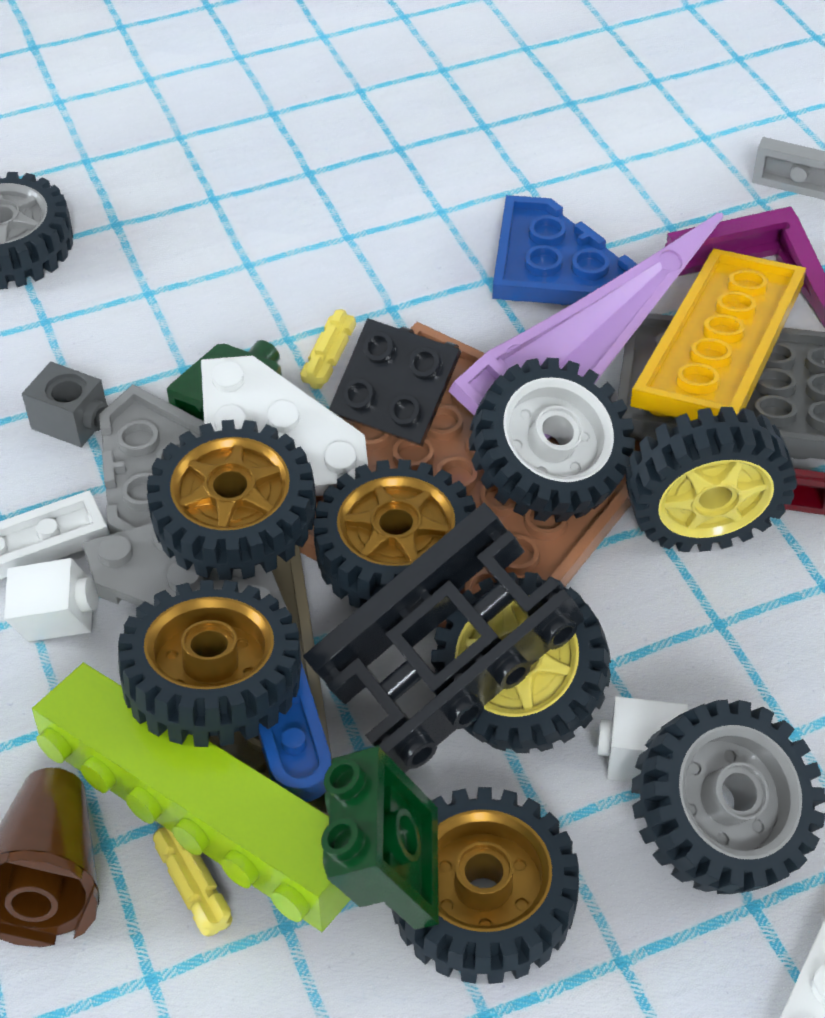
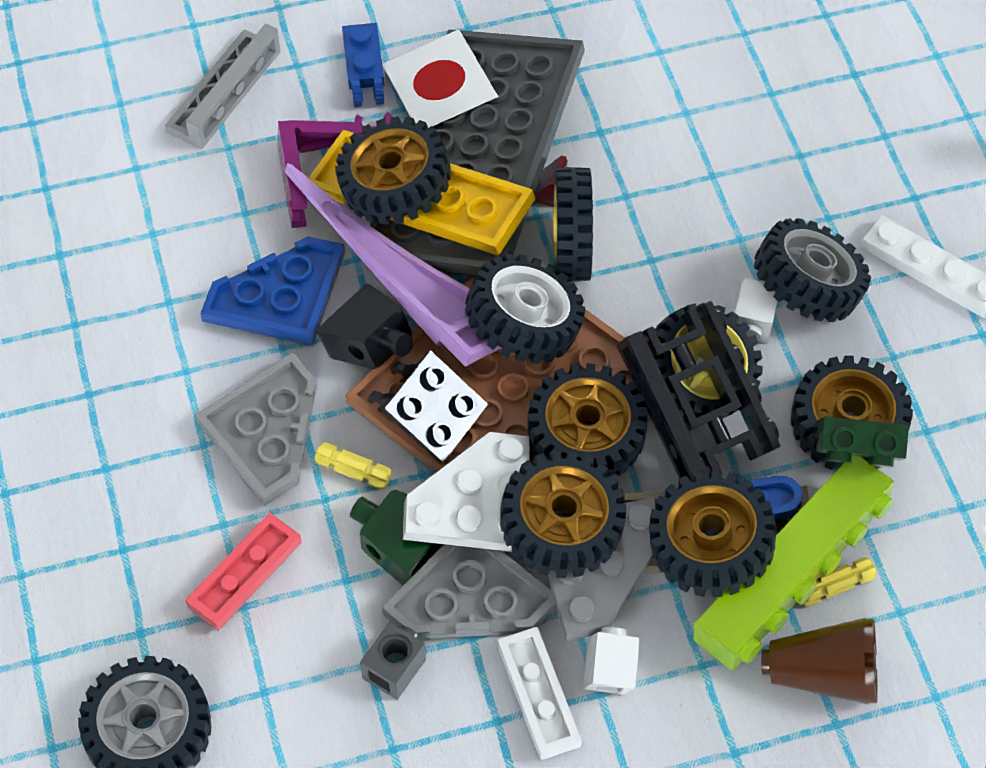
camera: 85 degrees left, 10 degrees up
(182, 277) = (243, 571): none -> coral plate
(369, 268) = (265, 426): none -> light grey plate
(500, 313) = (366, 330): none -> black torso
(733, 291) = (393, 170): none -> black wheel

